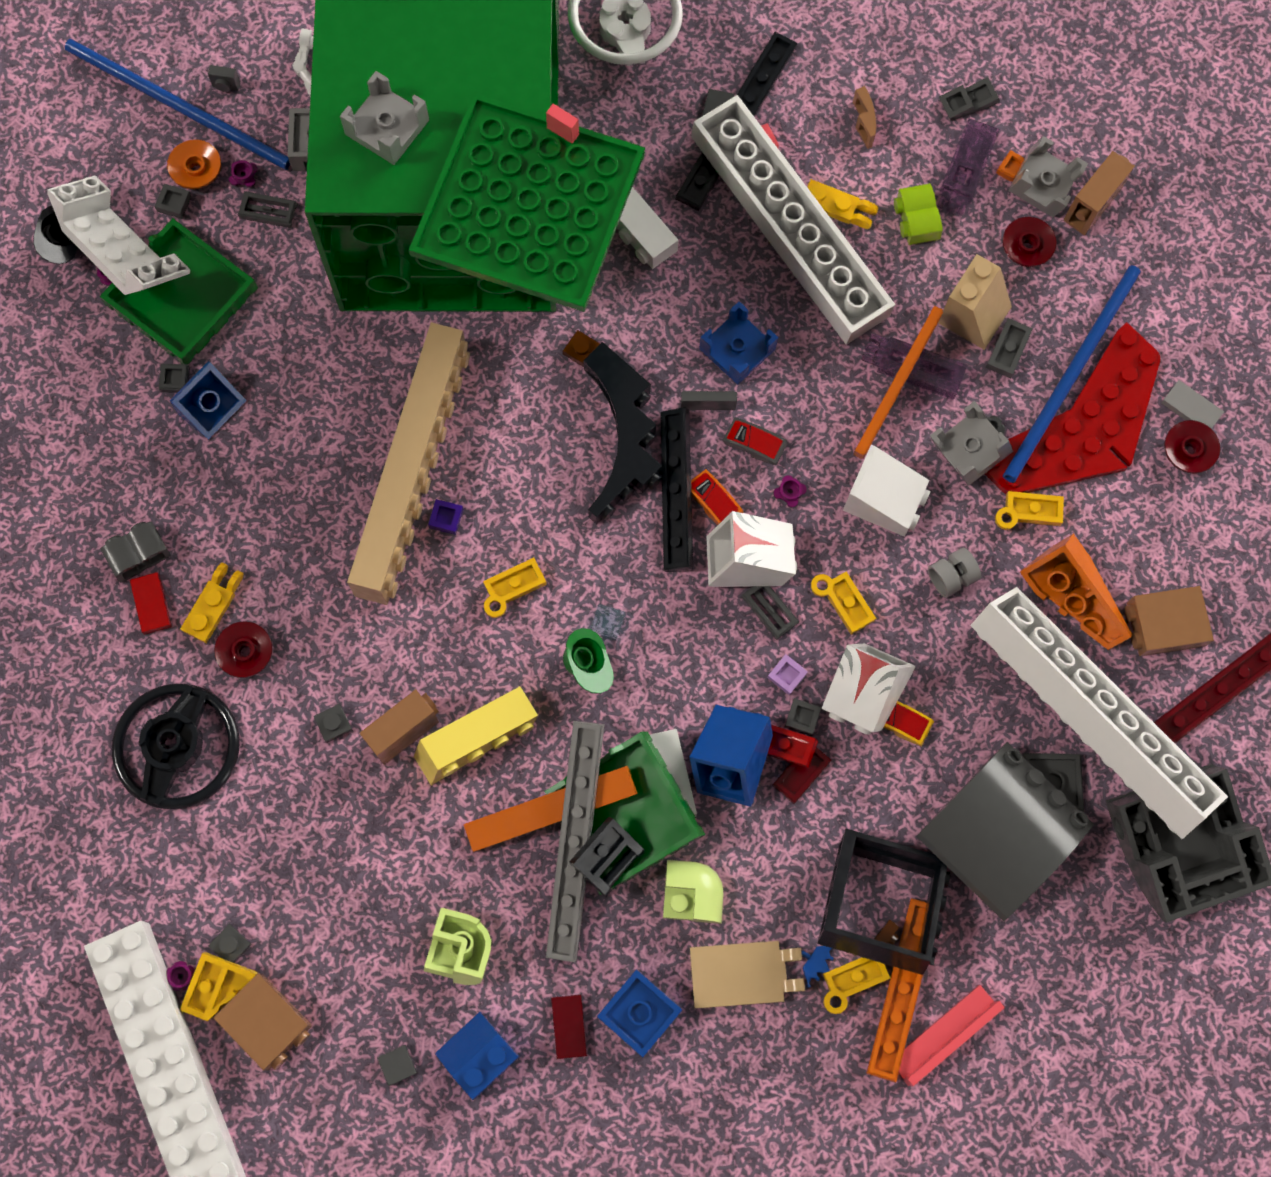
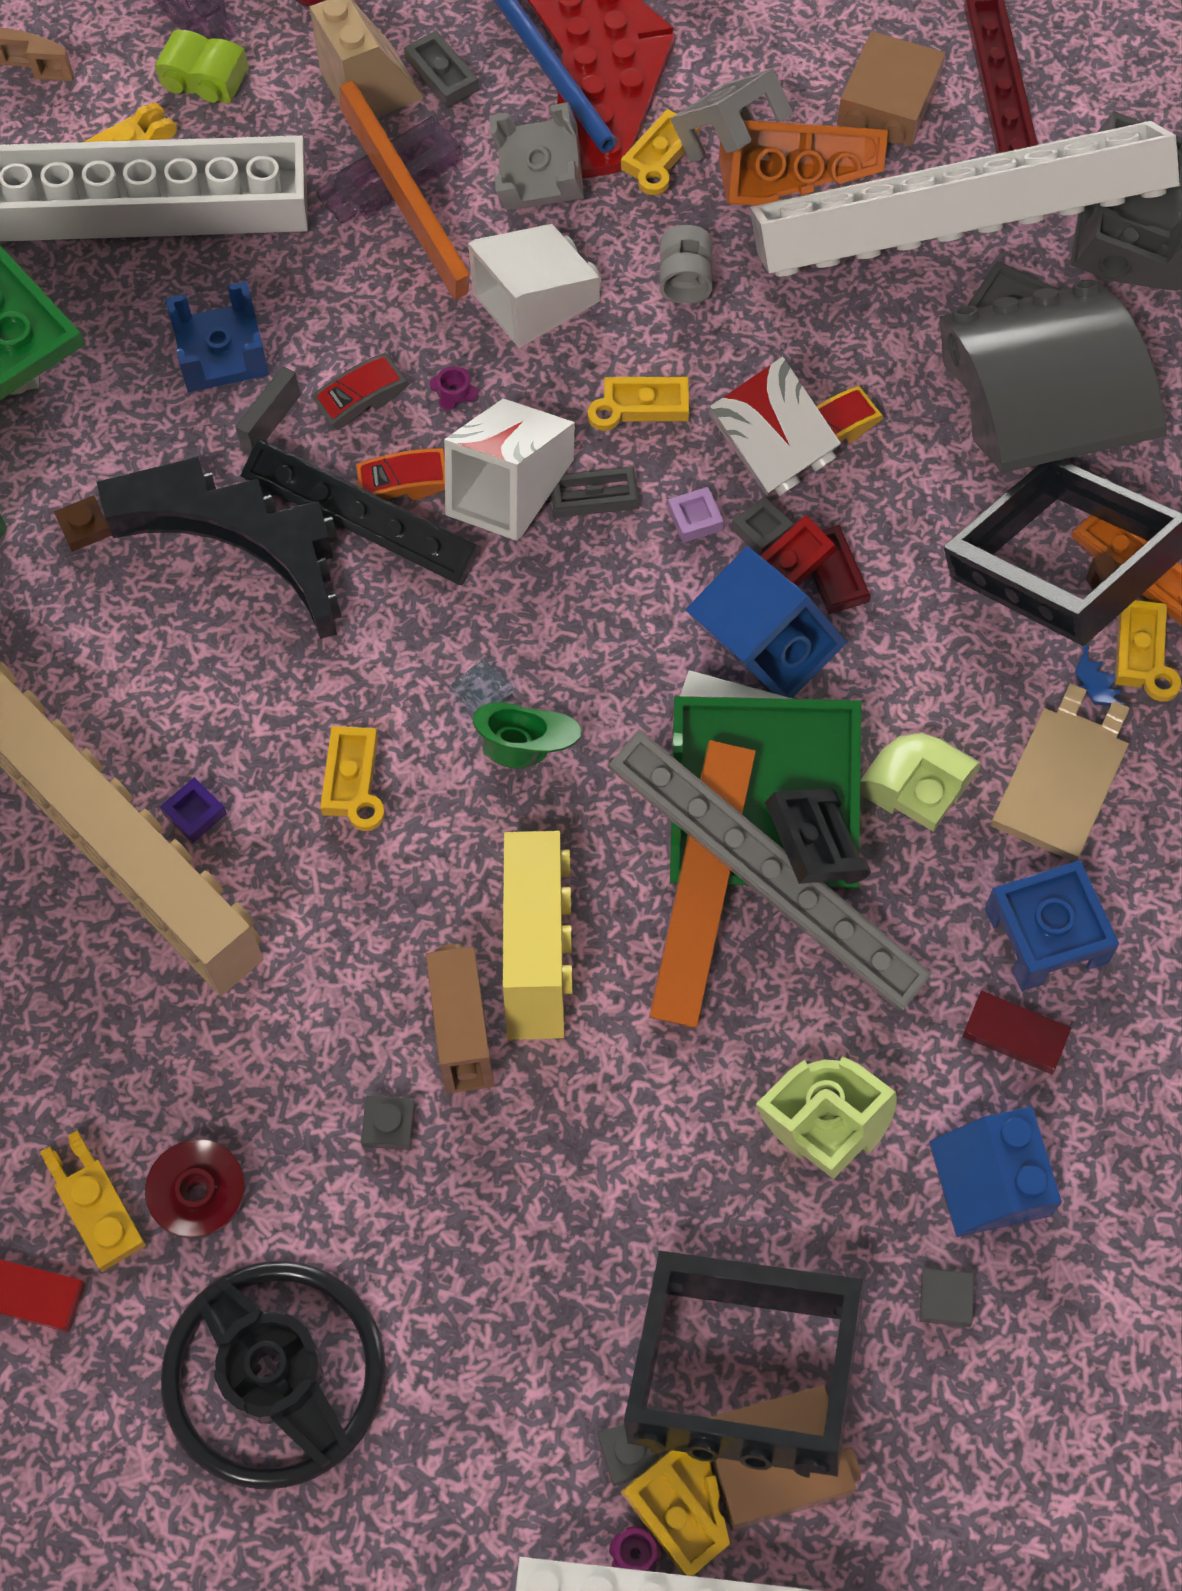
camera: 55 degrees left, 10 degrees down
(249, 1008) = (755, 1287): none -> black window
(1076, 529) = (727, 109): none -> light grey panel

